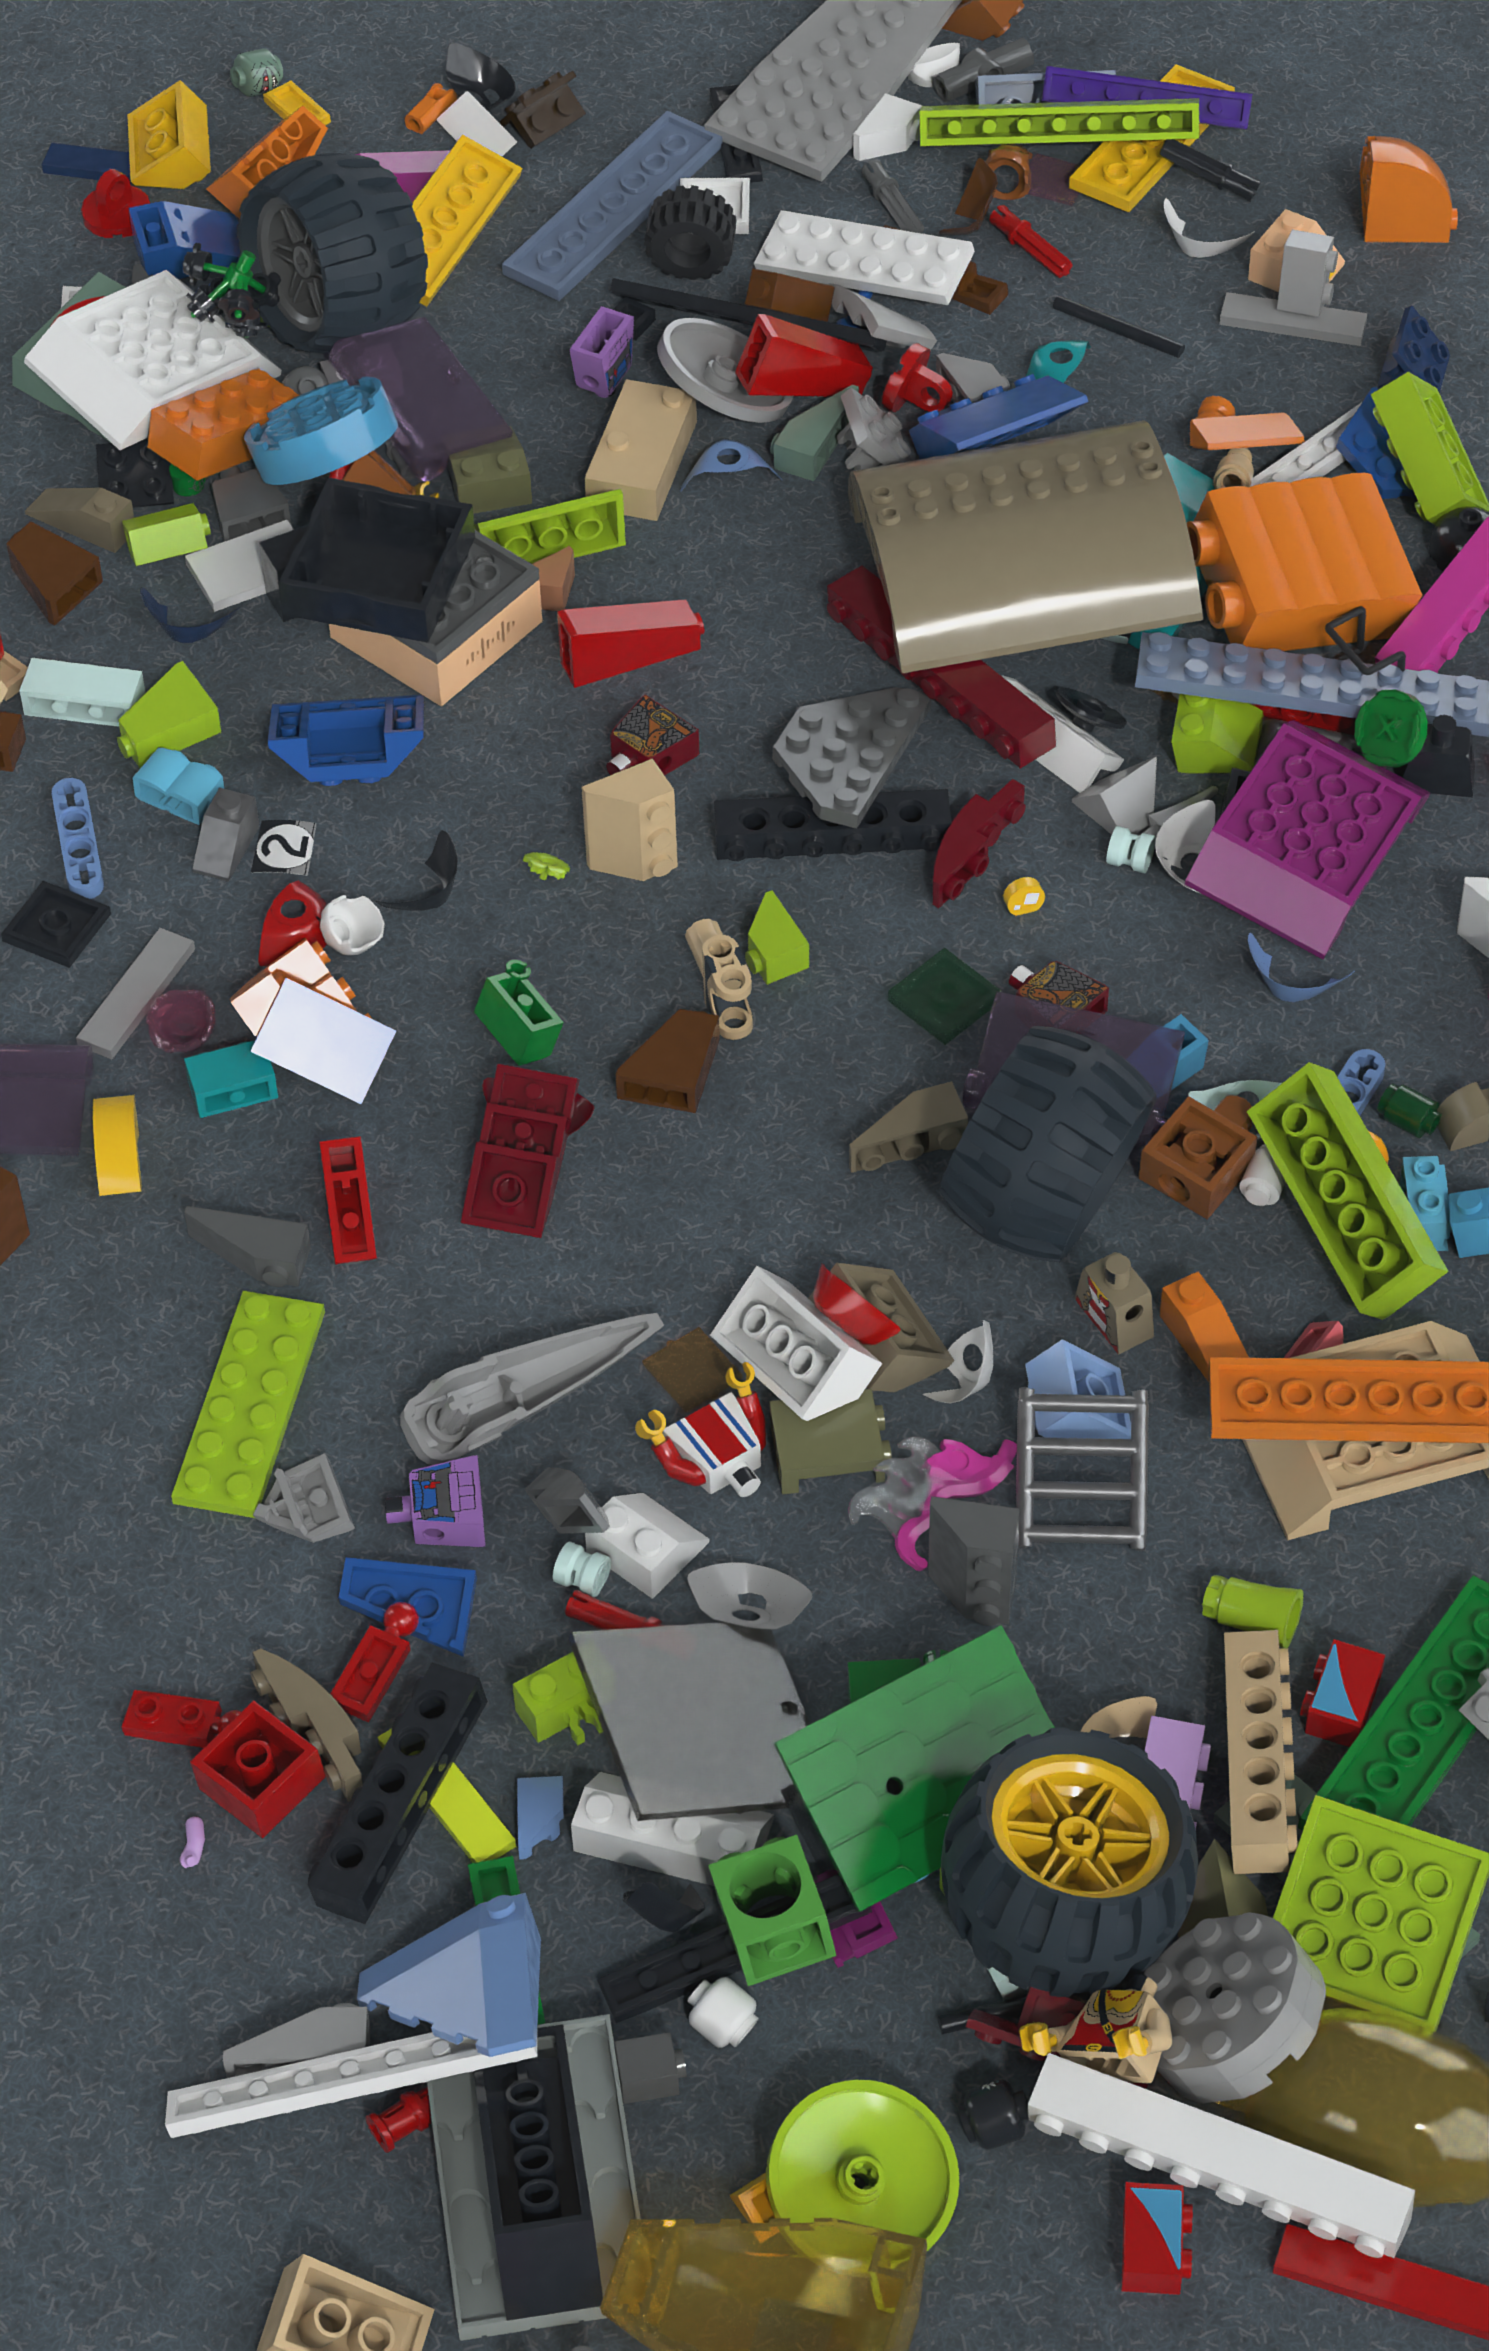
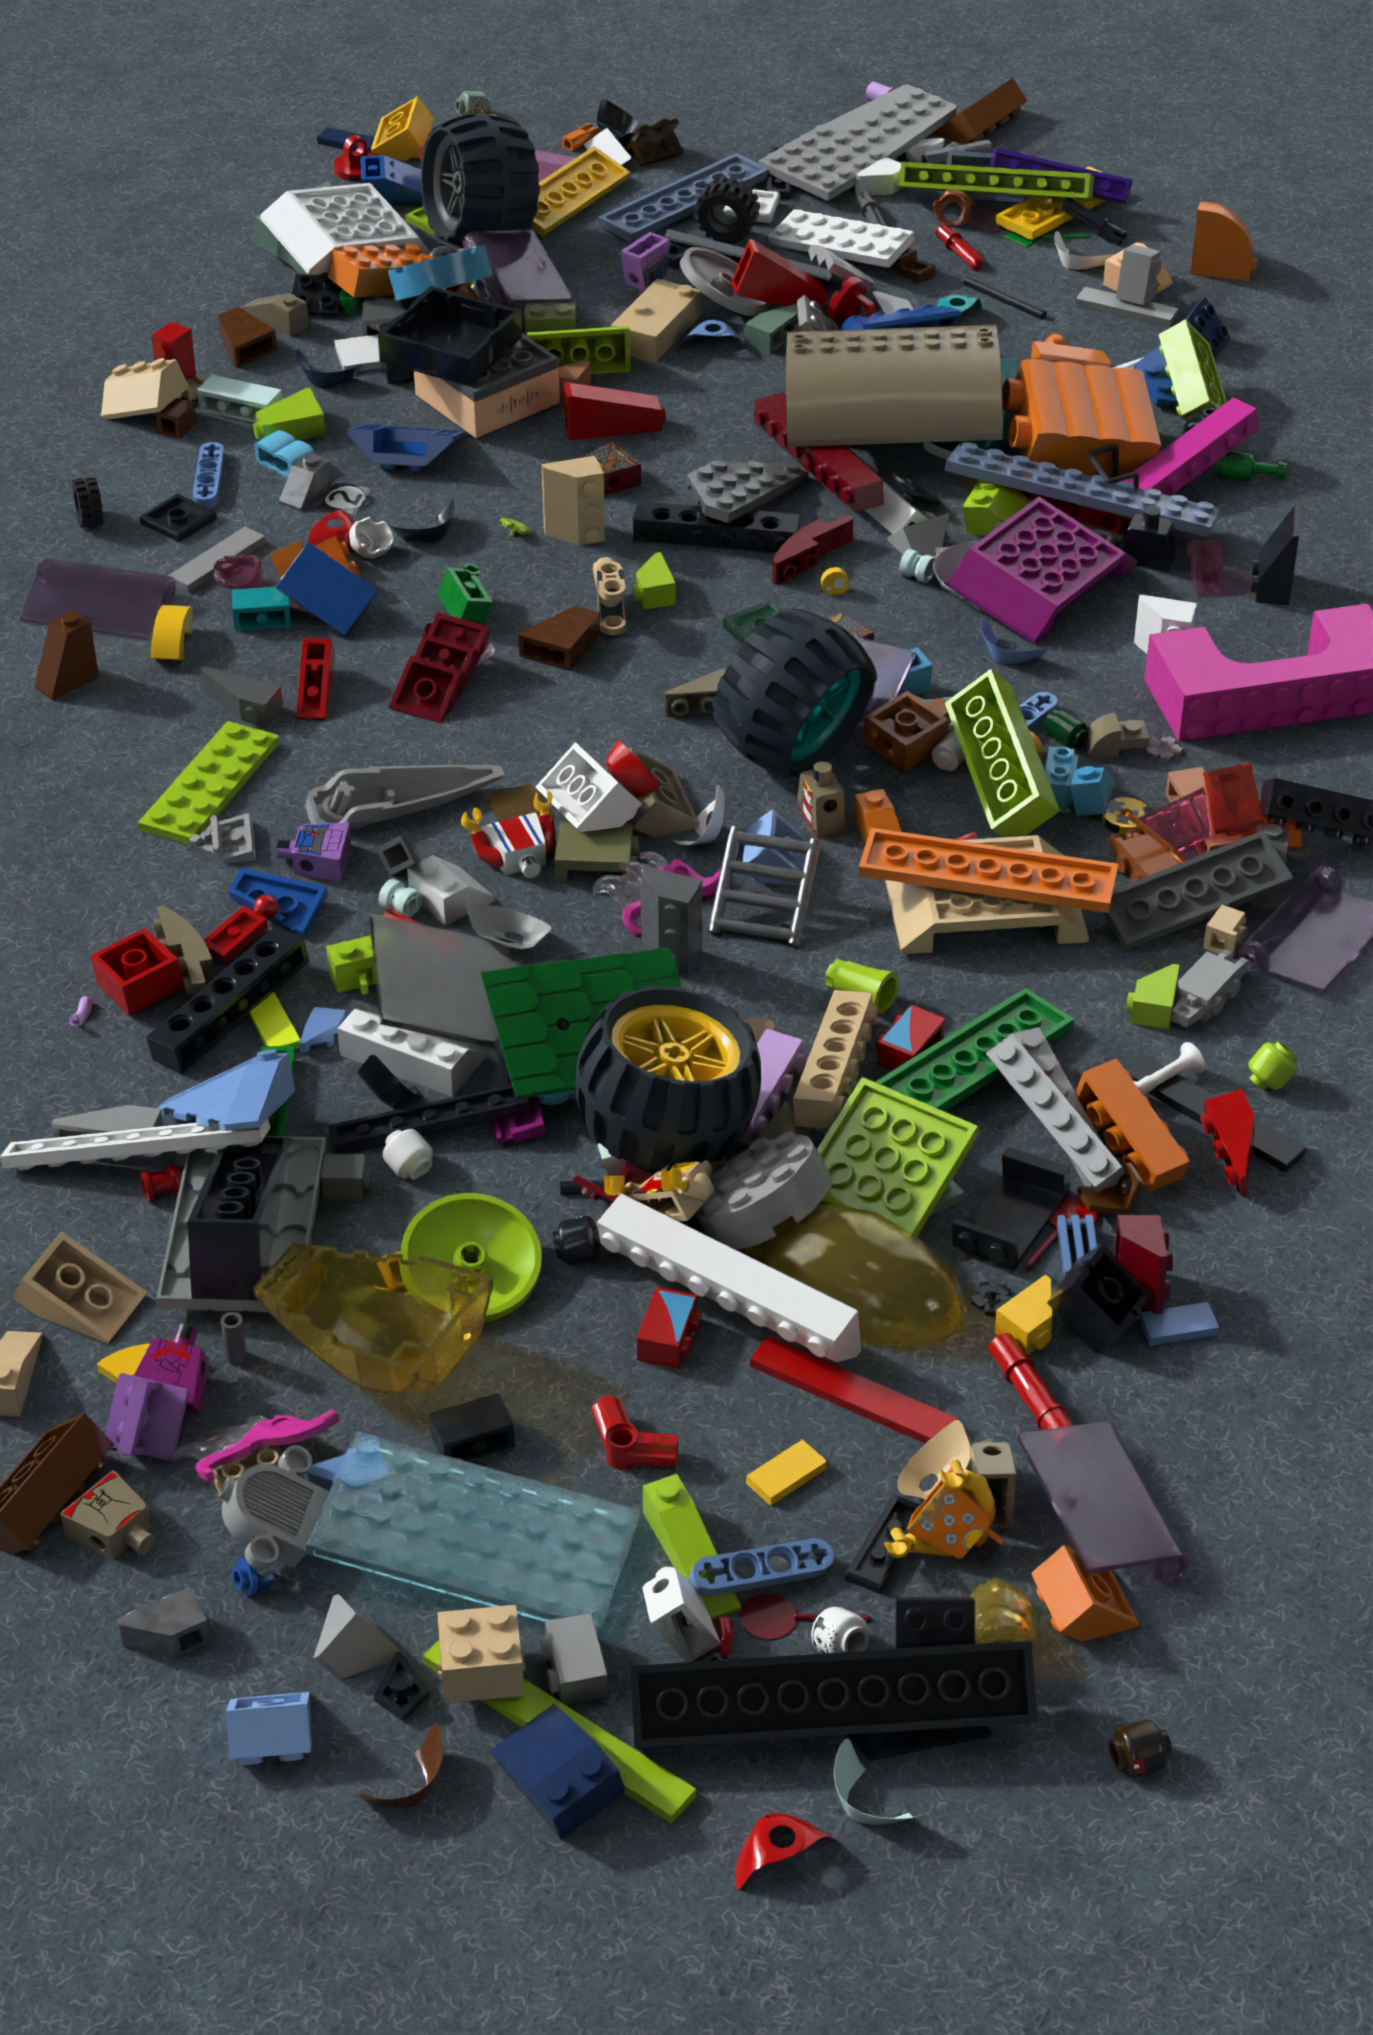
camera: 10 degrees right, 10 degrees down
(166, 534) = (325, 325): lime brick -> none
(175, 1718) = (86, 939): red plate -> none
(236, 294) = (405, 195): black plant -> none
(781, 1942) = (455, 1087): bright green brick -> none
(789, 295) = (781, 242): reddish brown slope -> none
(976, 198) = (930, 218): reddish brown piece -> none
(1121, 216) = (1025, 242): none -> green piece
(1391, 728) = (1115, 513): green tile -> none

